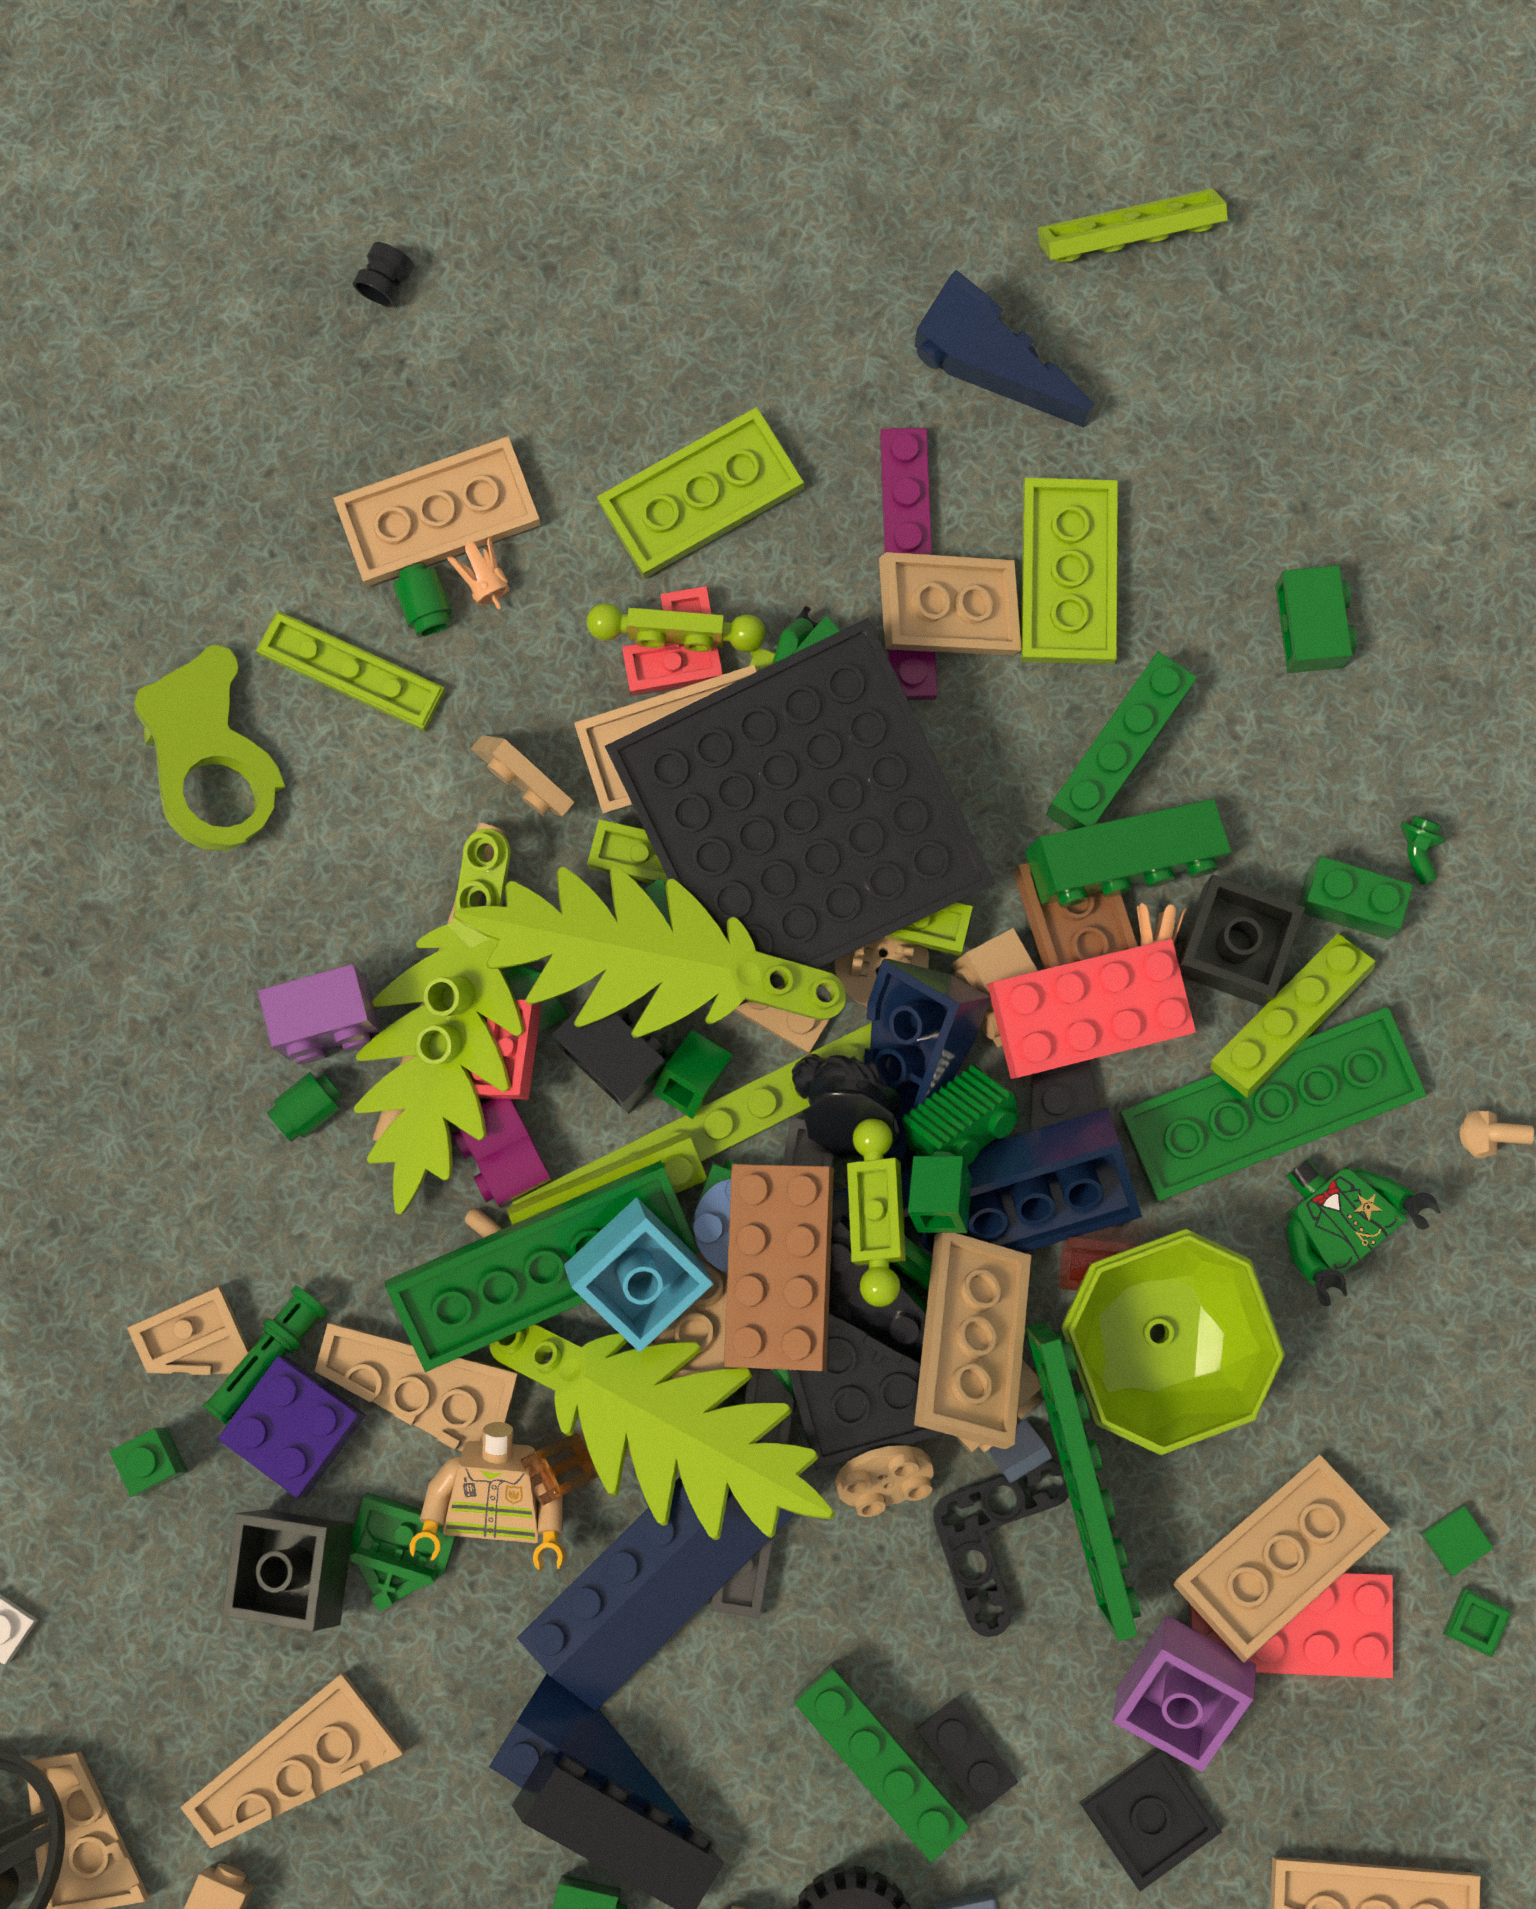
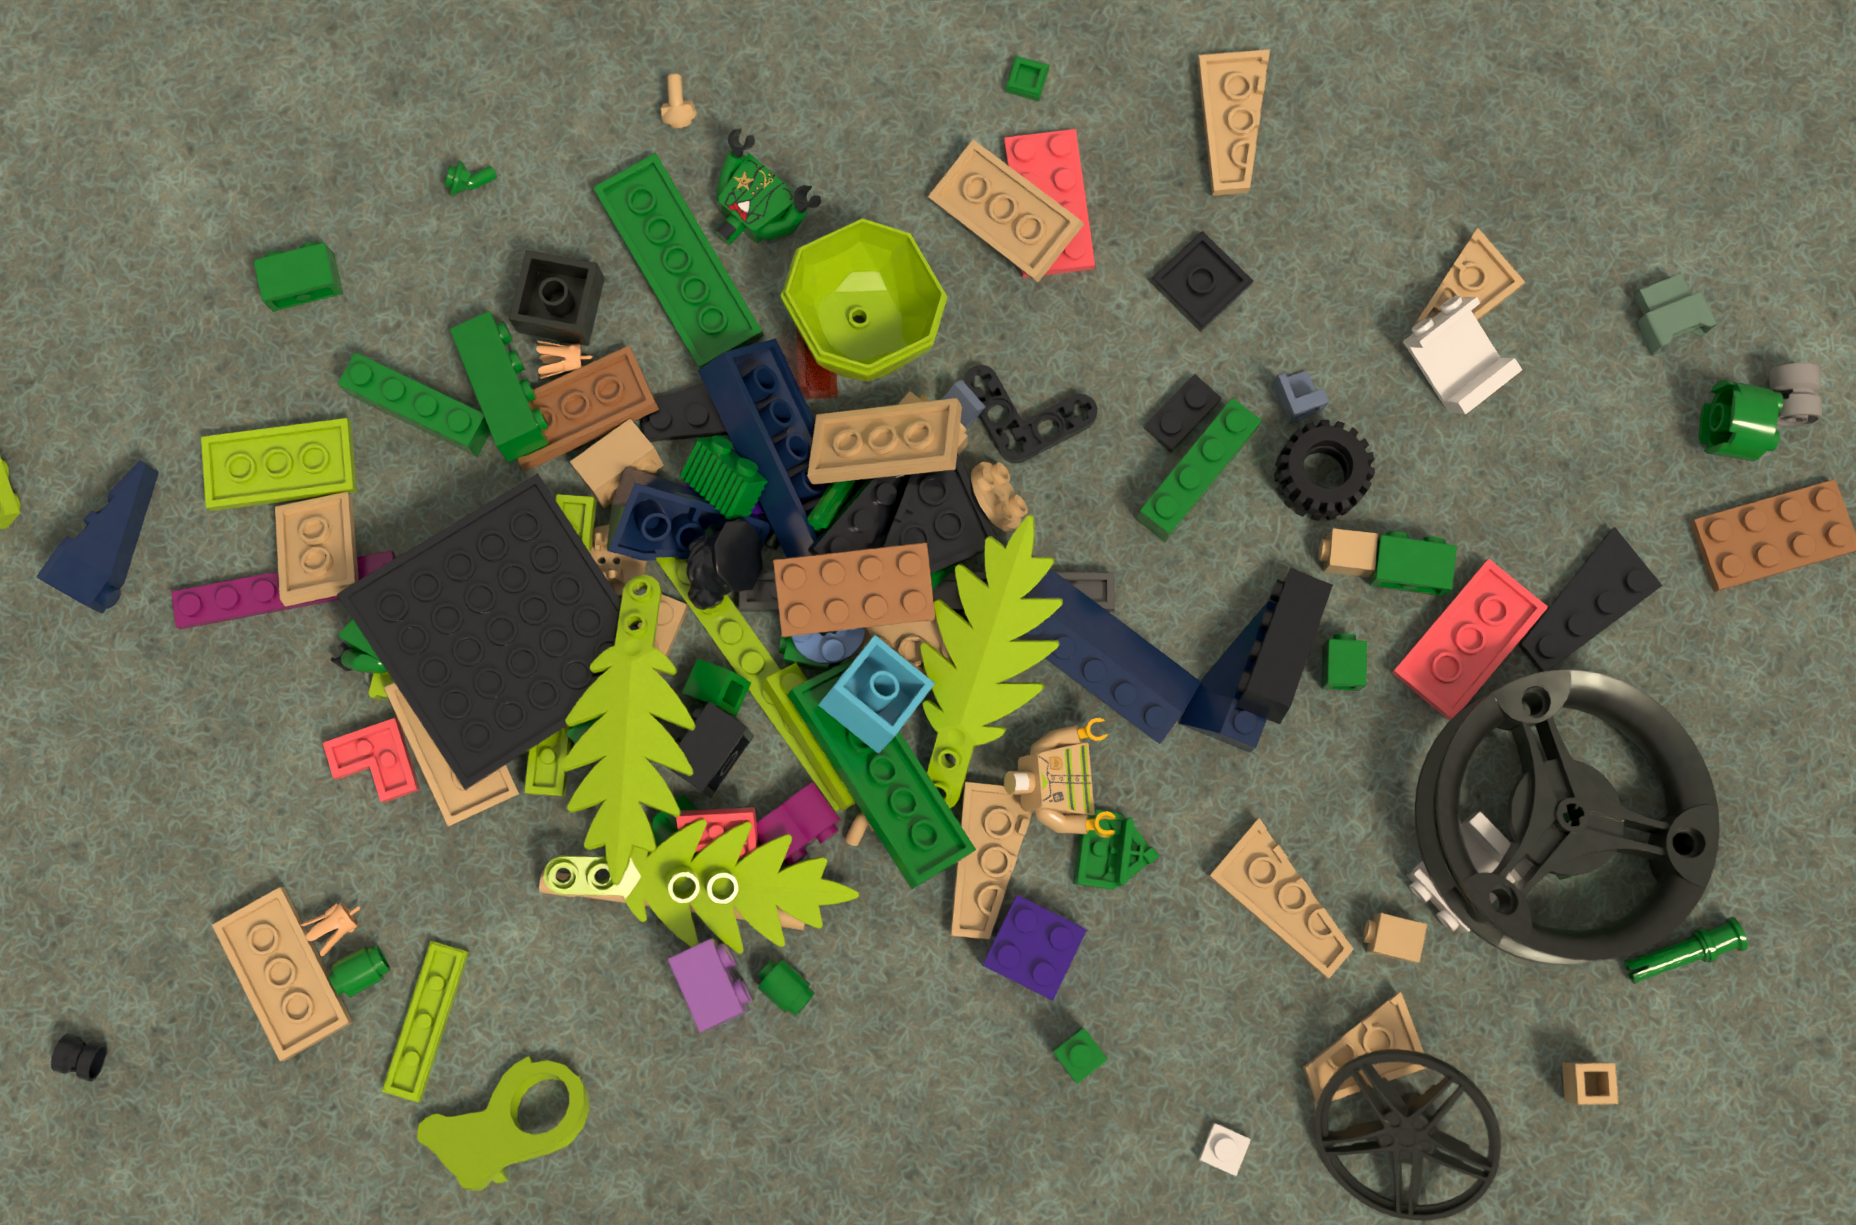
camera: 95 degrees left, 0 degrees up
(191, 1337) = (979, 1040): tan wing -> none
(280, 1337) = (967, 971): green pin -> none
(287, 1570) = (1141, 928): pearl dark grey brick -> none
(513, 767) = (493, 862): tan wing -> none
(547, 1474) = (1033, 739): clear orange tile -> none
(656, 627) = (361, 771): lime plate -> none
(700, 492) = (244, 762): lime plate -> none
(876, 1212) = (802, 522): lime plate -> none
(940, 1193) = (780, 476): green brick -> none
(1079, 1462) = (972, 352): green plate -> none
(1091, 1008) = (624, 394): coral plate -> none
(1184, 1693) = (1112, 263): medium lavender brick -> none
(1292, 1015) = (611, 253): lime plate -> none
(1355, 897) = (513, 219): green brick -> none
(1456, 1540) = (972, 98): green tile -> none

